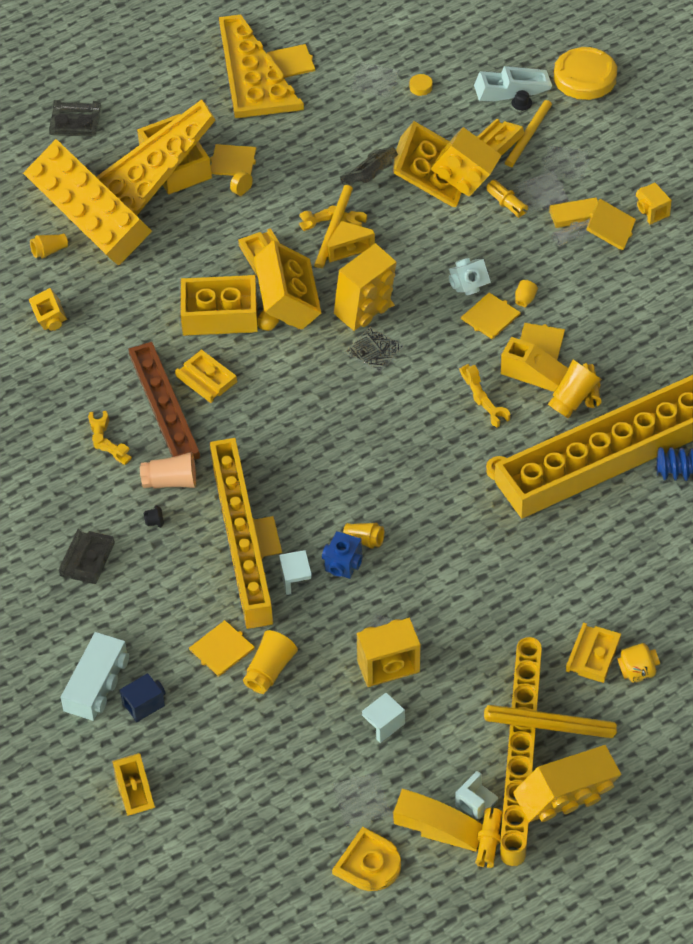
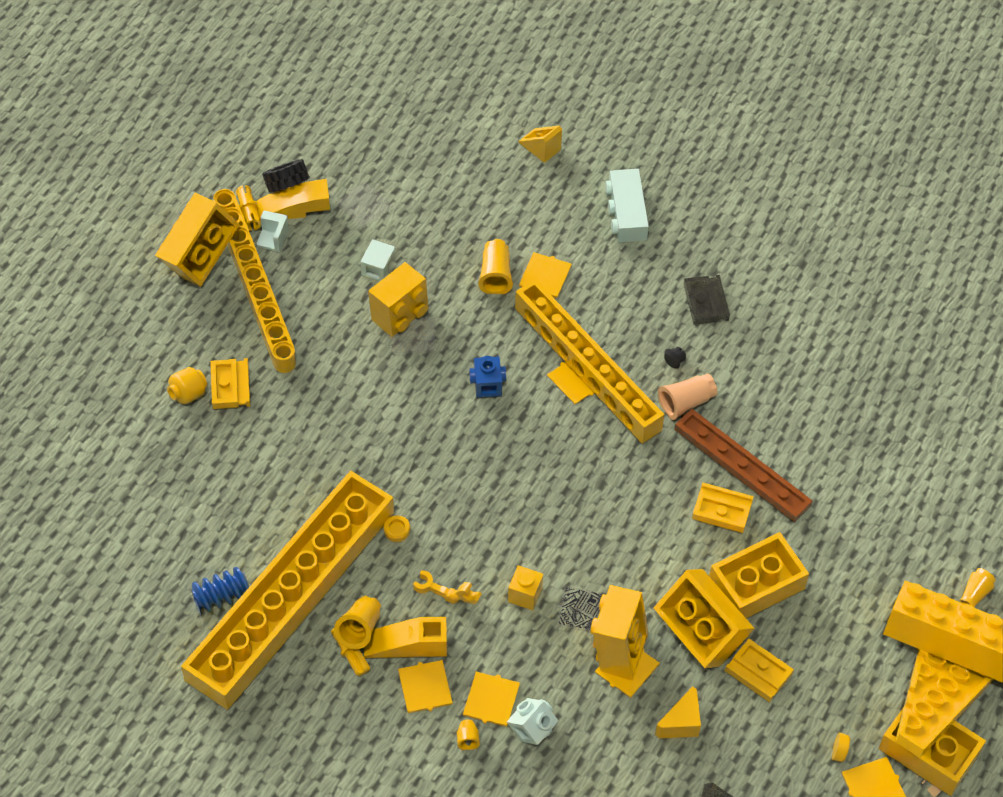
camera: 150 degrees right, 5 degrees up
(48, 310) = (917, 510): yellow brick -> none
(98, 427) = (746, 401): yellow piece -> none
(143, 697) = (578, 204): dark blue brick -> none
(294, 568) = (523, 348): light aqua panel -> none
(310, 219) = (720, 756): yellow piece -> none
(336, 219) = (709, 732): yellow bar -> none
(369, 862) = (332, 162): yellow tile -> none
(370, 533) = (482, 411): yellow cone -> none
(416, 371) = (525, 587): none -> yellow brick
(429, 860) = (285, 175): none -> black tyre
(550, 721) = (235, 294): yellow axle -> none

